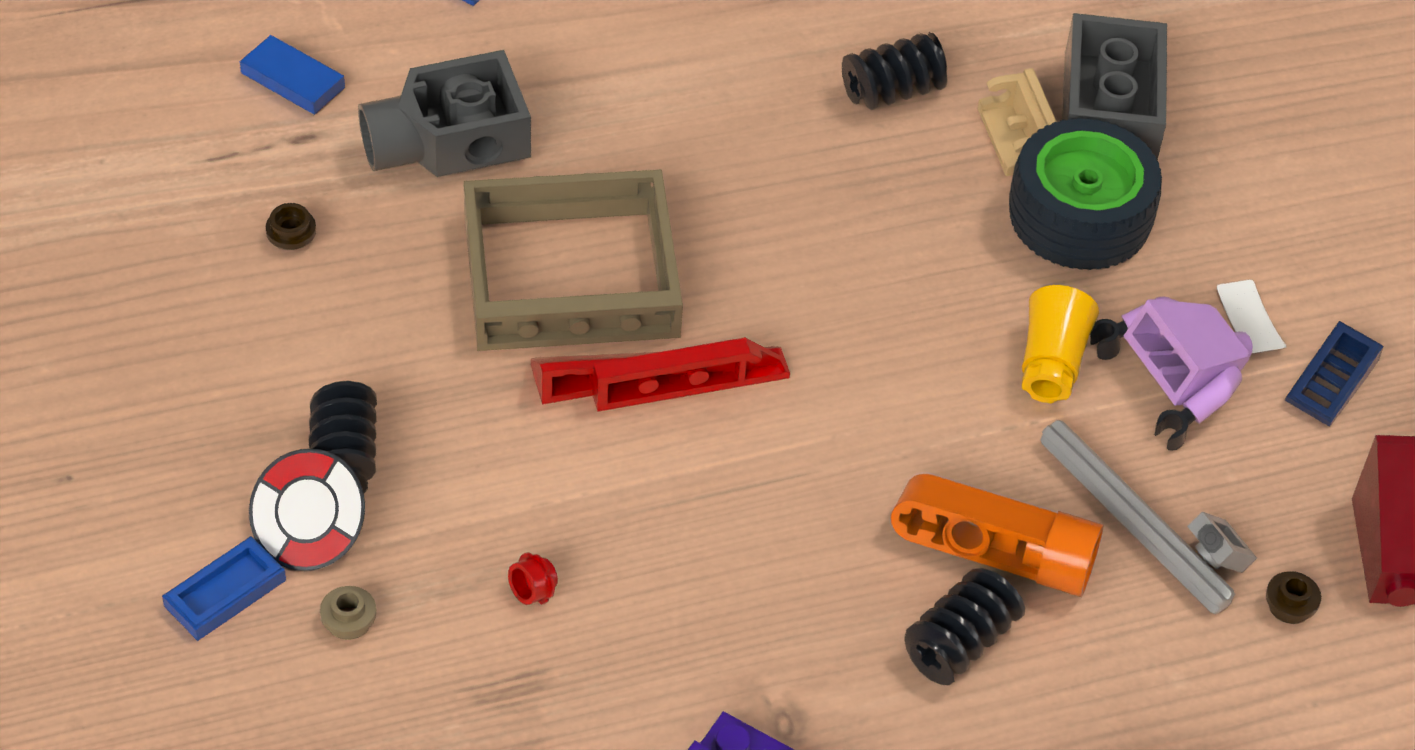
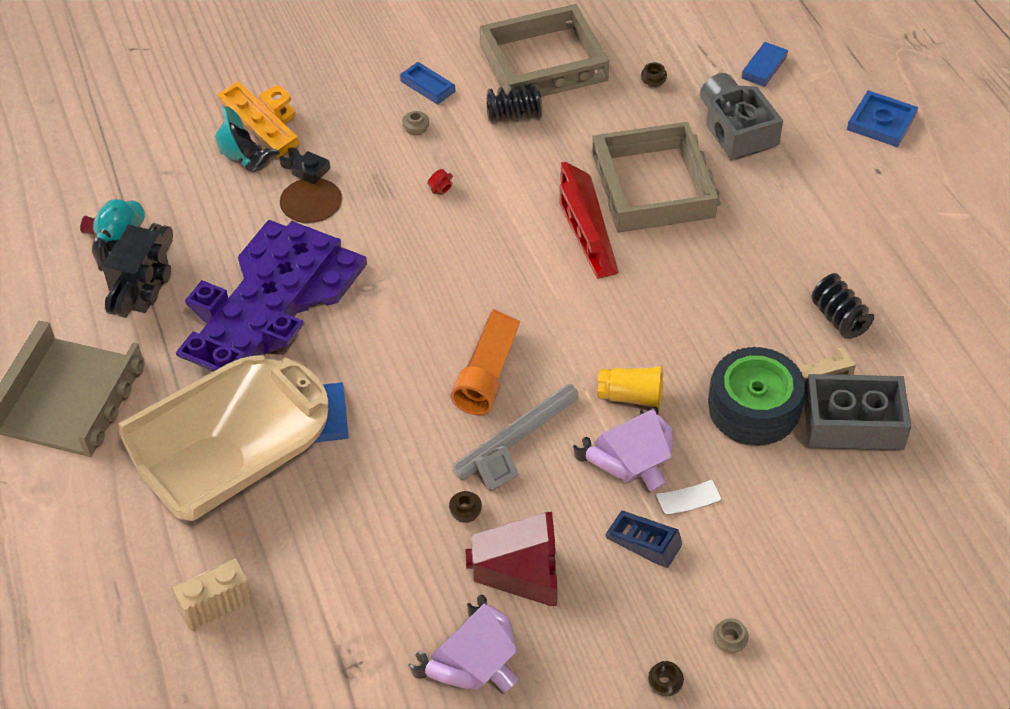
camera: 90 degrees right, 0 degrees up
(203, 454) = (551, 79): none -> dark tan window
(307, 509) = (467, 95): sticker -> none
(963, 625) = (424, 346): black piece -> none

